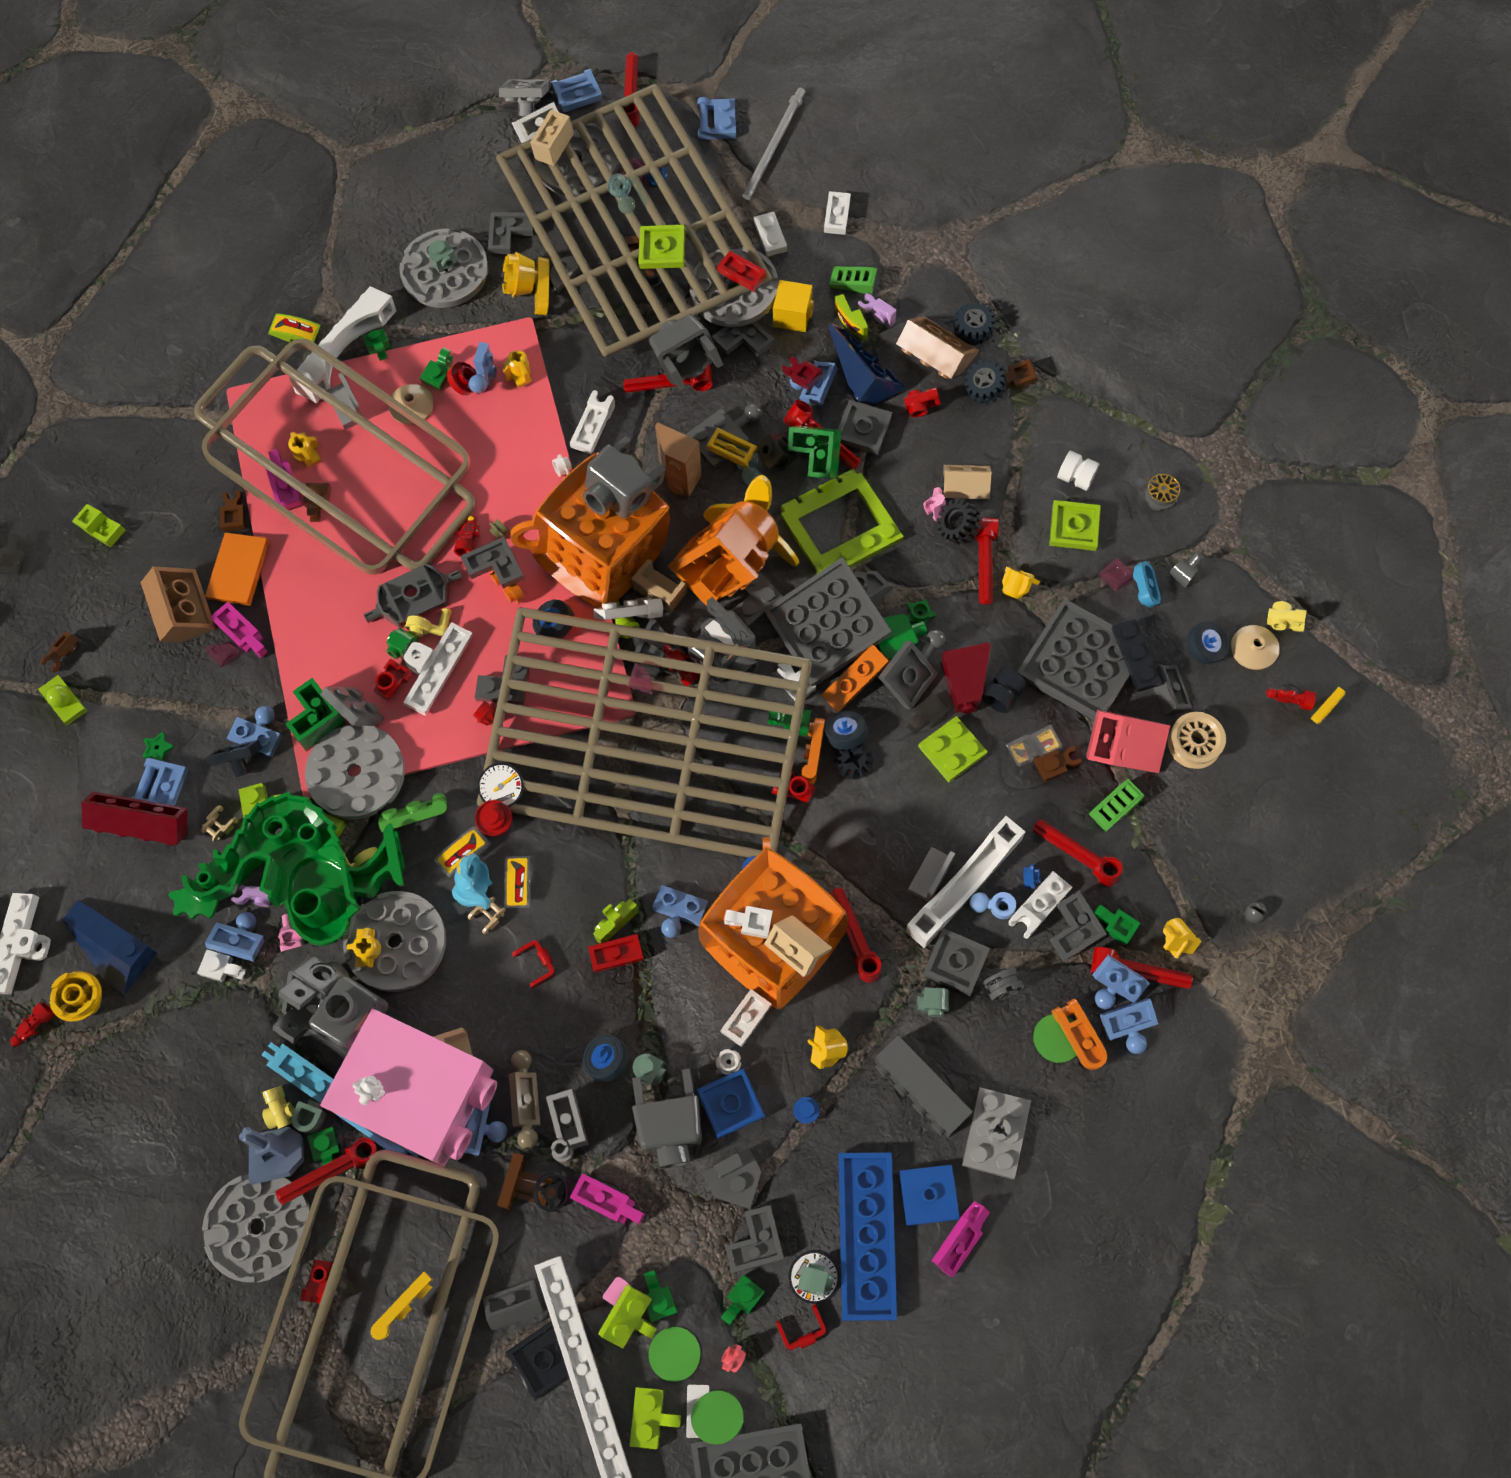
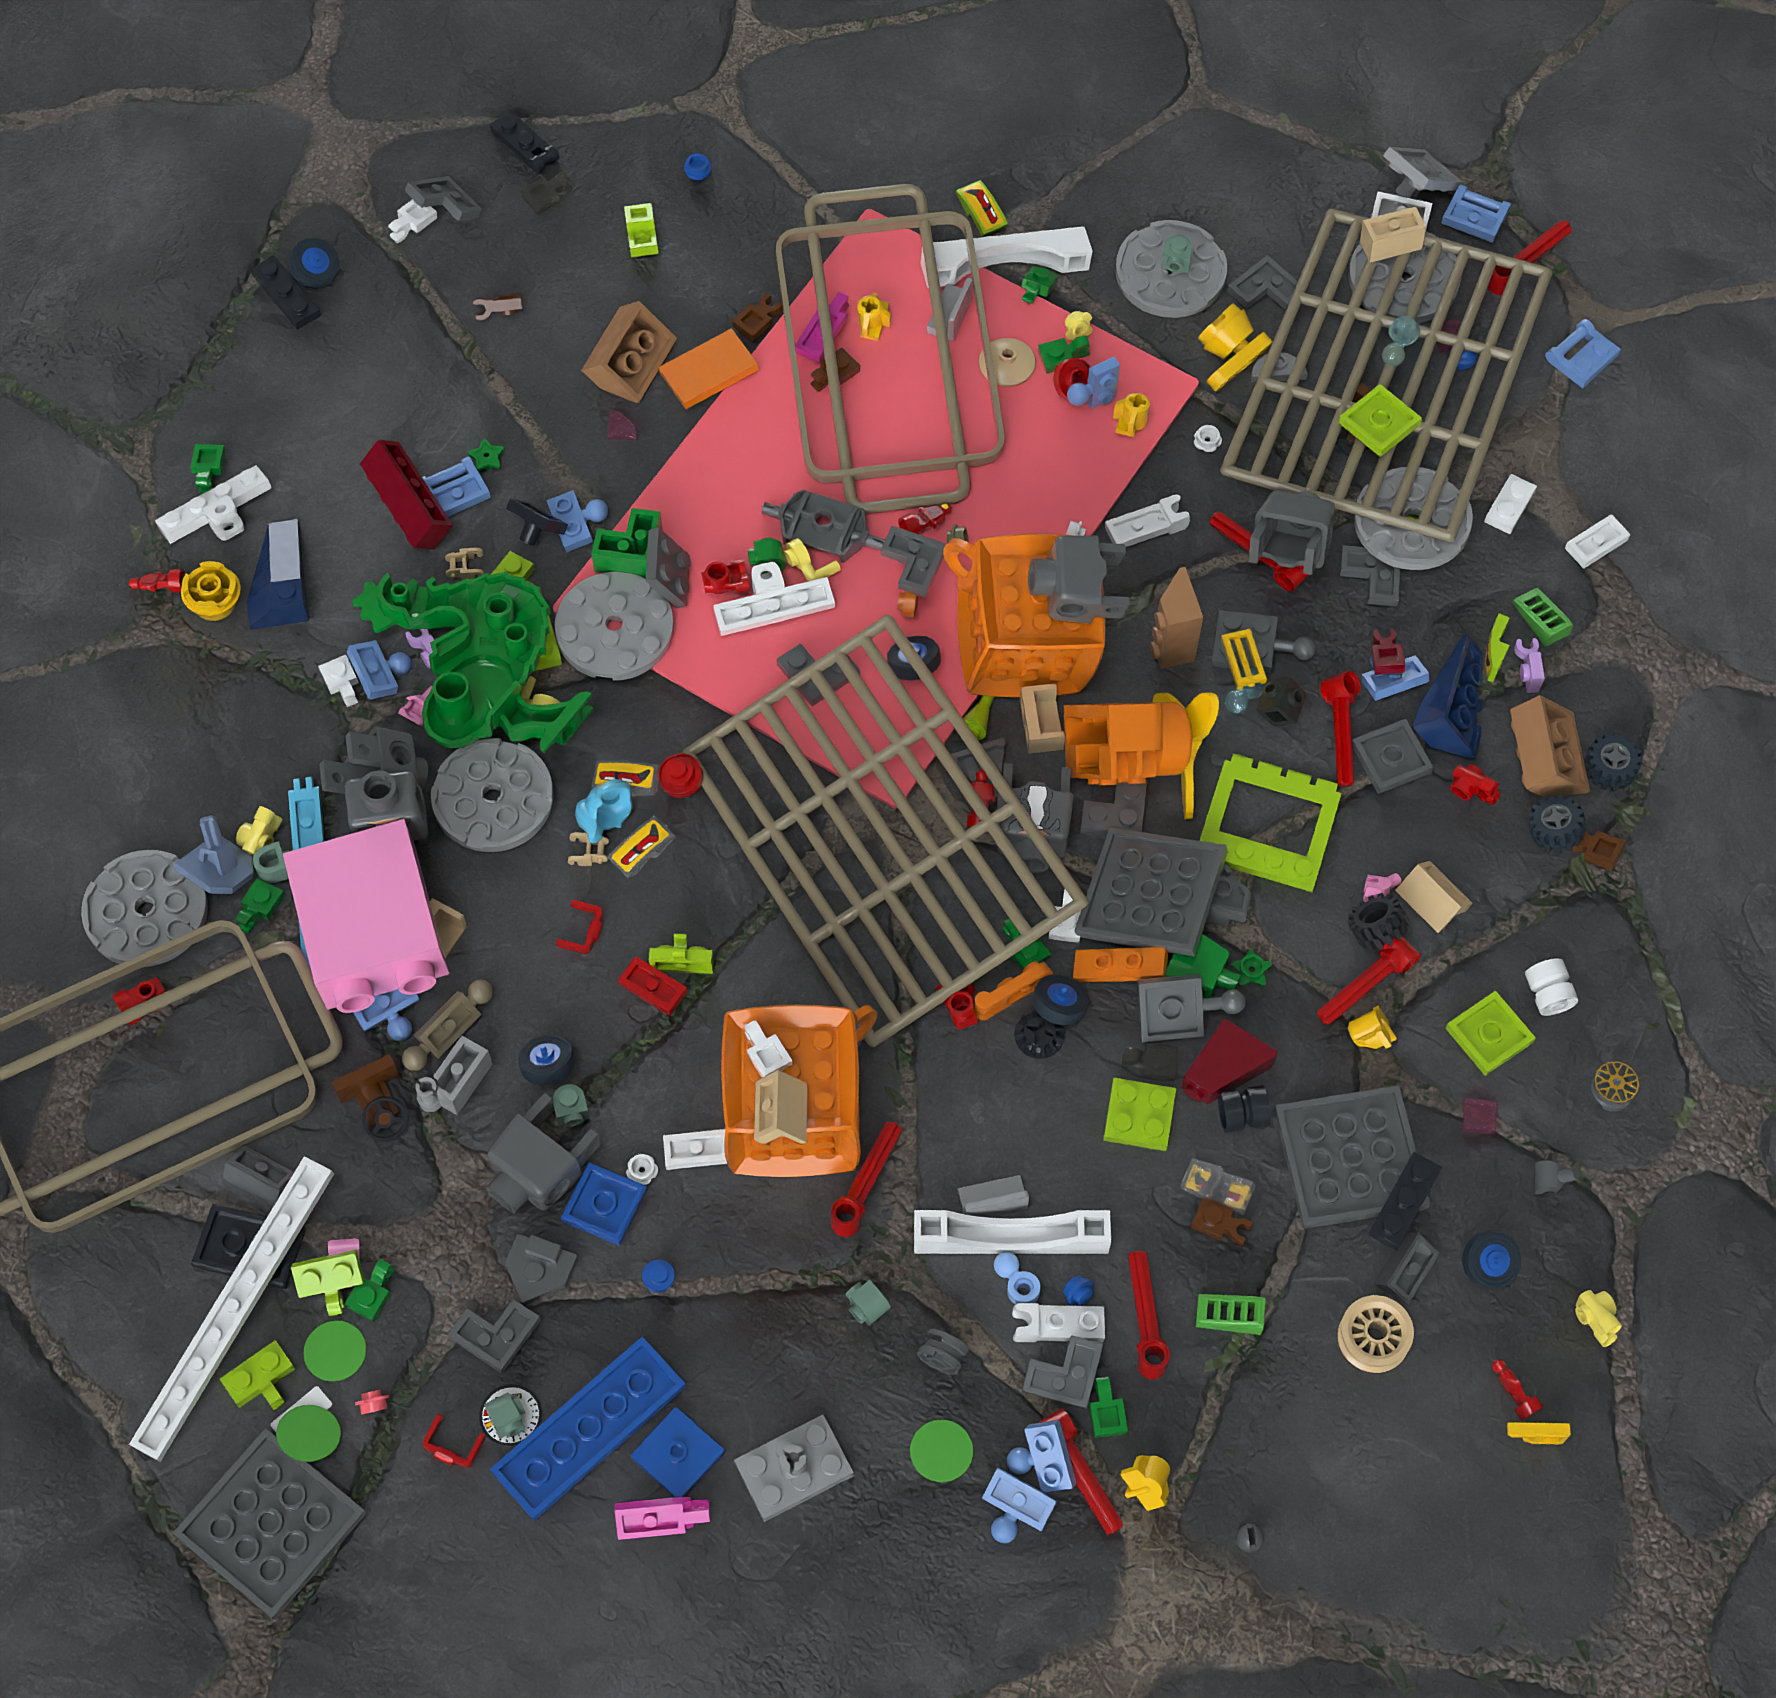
camera: 45 degrees right, 5 degrees down
(62, 700) = (458, 347): lime tile -> none
(91, 457) = (697, 166): none -> blue plate
(239, 629) = (654, 420): dark pink hinge -> none
(329, 1170) = (246, 921): red axle -> none
(365, 948) = (461, 774): yellow piece -> none
(369, 1089) = (328, 877): white plant -> none
(401, 1307) = (172, 1077): yellow plate -> none
(413, 812) = (623, 705): bright green plate -> none
(429, 345) = (1078, 324): none -> light yellow plate
(485, 713) = (769, 679): red plate -> none
(501, 783) = (717, 752): white sticker -> none
(571, 340) = (1207, 432): none -> white plate
(605, 1200) = (418, 1172): dark pink hinge -> none
(640, 680) = (923, 775): clear pink tile -> none
(641, 607) = (1007, 724): white plate -> none
(679, 907) = (744, 993): medium blue plate -> none
(741, 271) = (1427, 507): red plate -> none
(743, 1297) = (437, 1366): green plate -> none
(792, 306) = (1450, 585): yellow head -> none
(795, 102) = (1679, 404): light grey bar -> none
(823, 449) = (1324, 732): green brick -> none
(827, 1047) = (735, 1243): yellow piece -> none
(922, 1086) = (775, 1360): dark grey brick -> none
(956, 962) = (926, 1291): dark grey plate -> none
(1081, 1035) = (960, 1468): orange plate -> none
(1127, 741) = (1303, 1265): coral slope -> none
(1147, 584) = (1496, 1152): dark azure plate -> none
(1250, 655) = (1531, 1326): tan dish -> none

